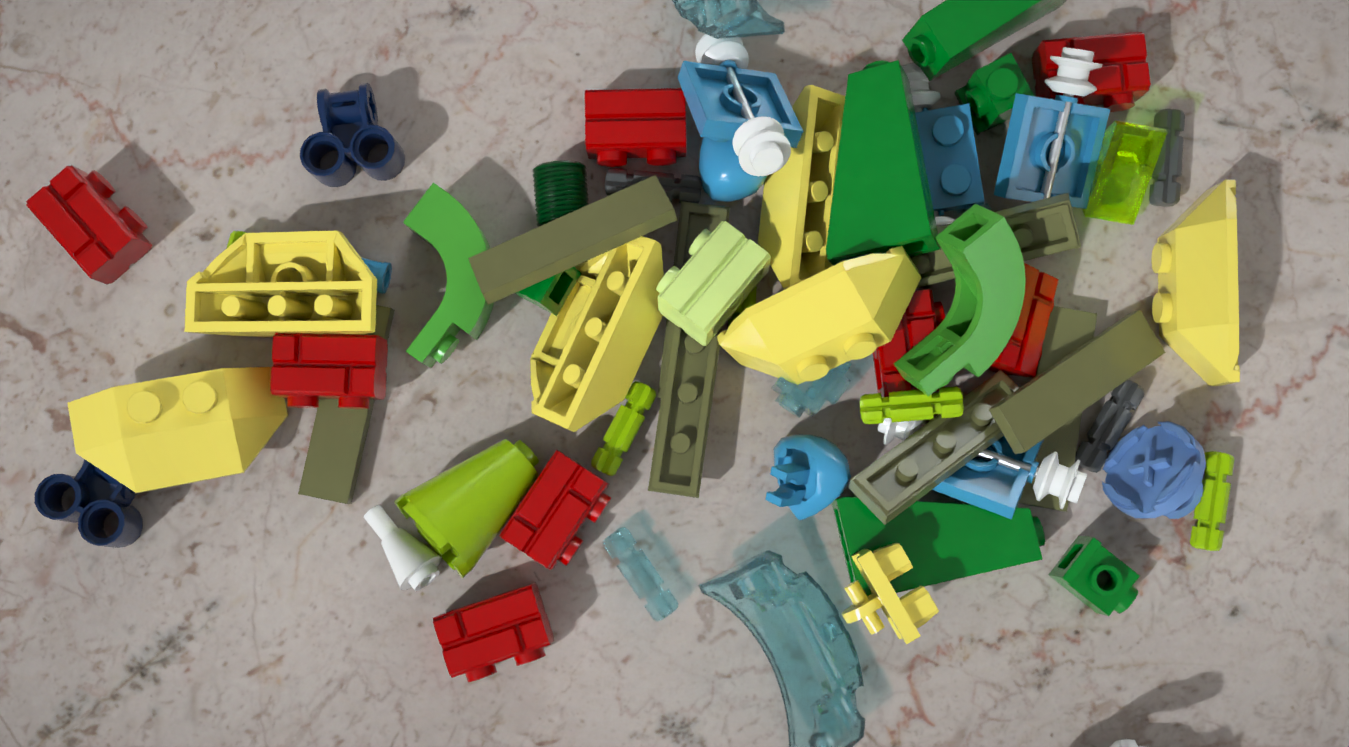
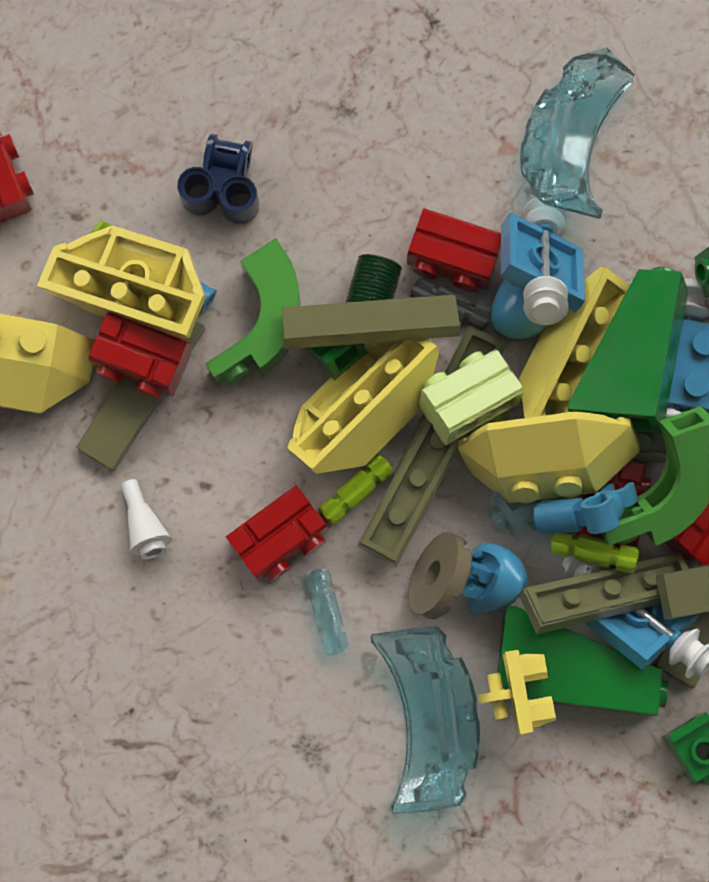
camera: 20 degrees right, 5 degrees down
(471, 502) = (211, 502): lime cone -> none
(494, 631) = (192, 612): red brick -> none
(750, 493) = (439, 575): none -> dark tan tile
(902, 365) = (597, 513): none -> dark azure bar

